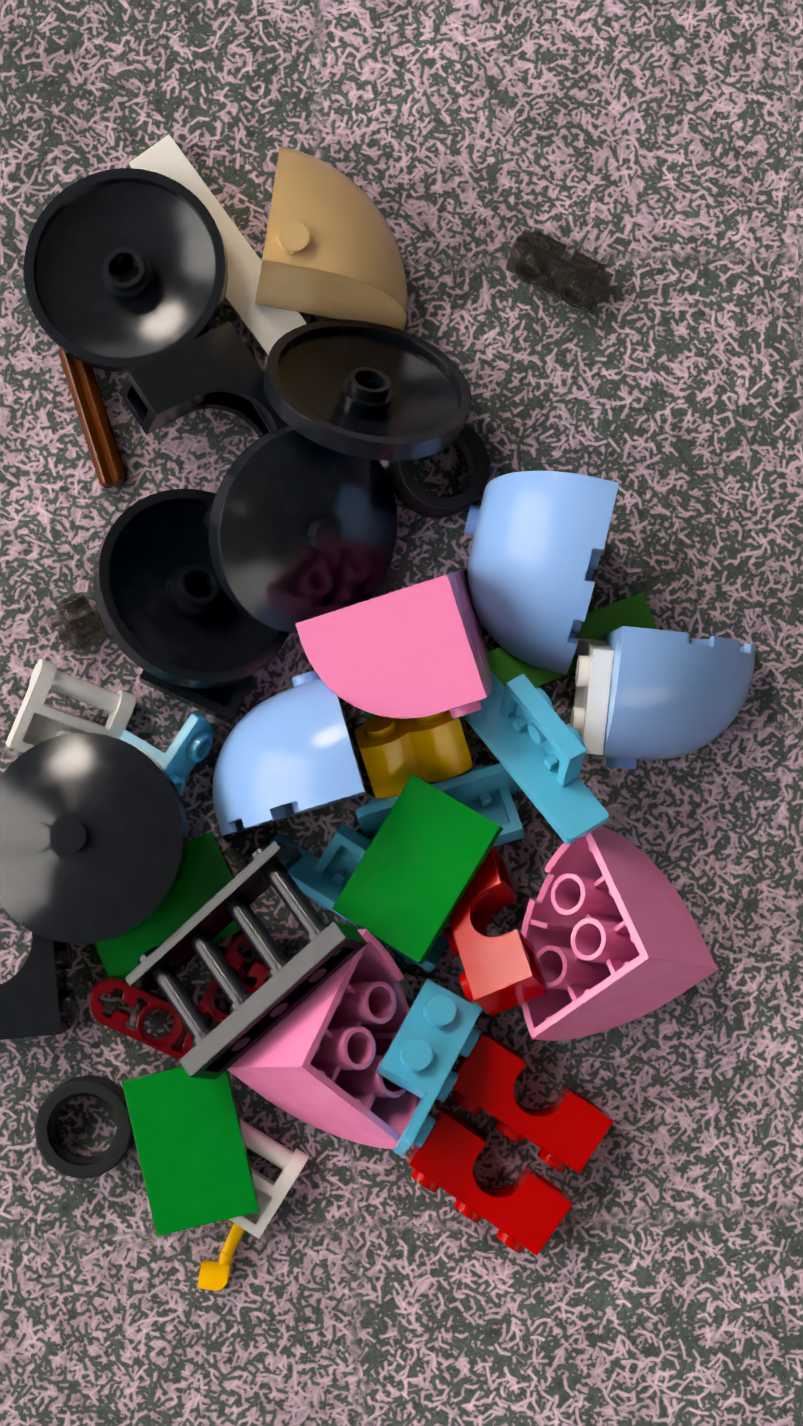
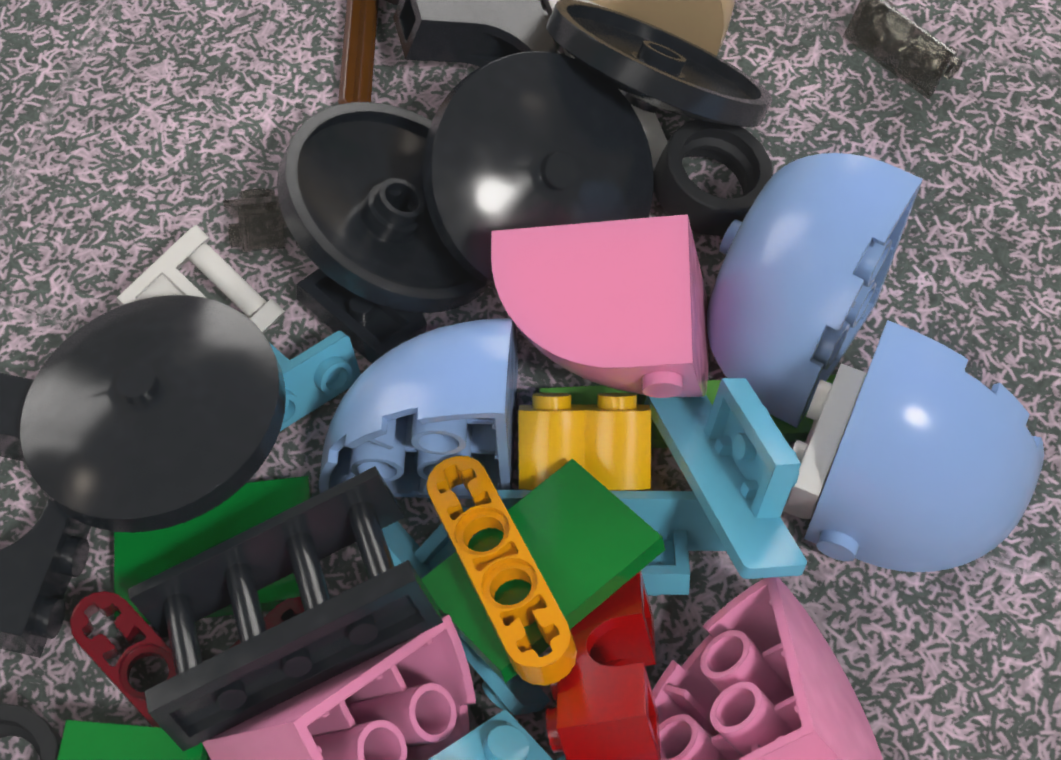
camera: 20 degrees right, 25 degrees down
(387, 888) = (502, 564): none -> light orange beam

